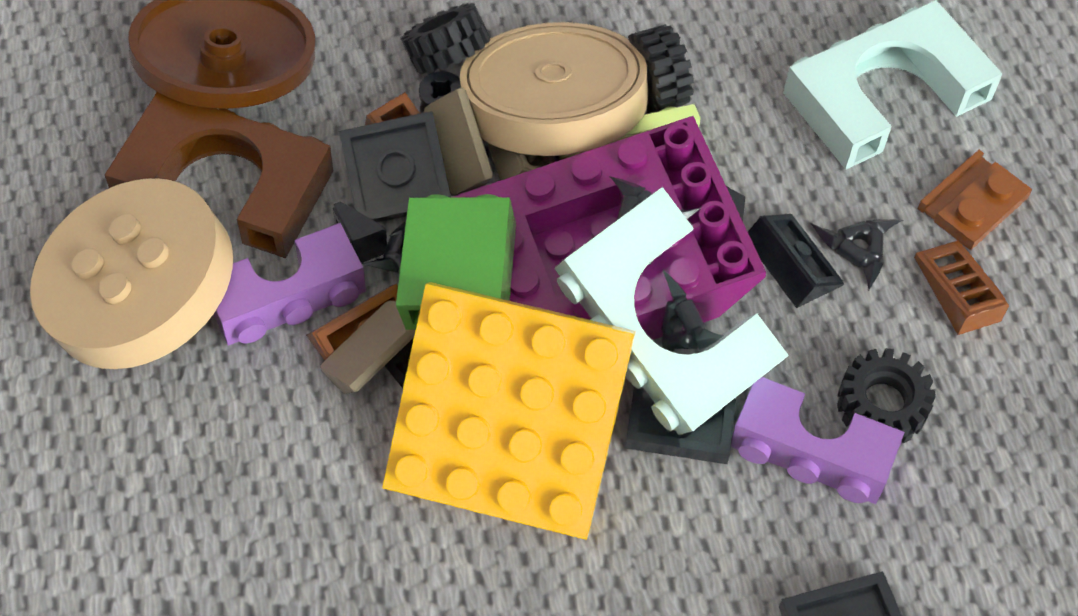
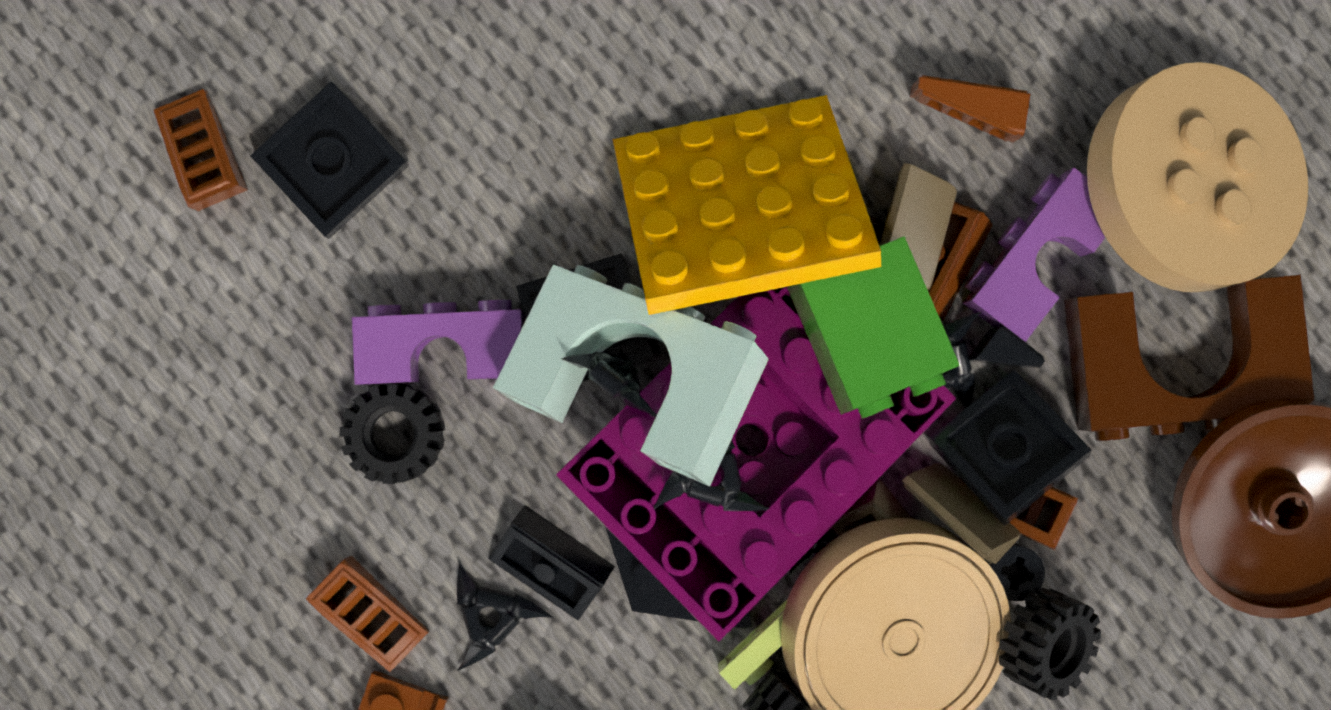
camera: 155 degrees right, 30 degrees up
(259, 413) = (986, 107): none -> dark orange slope

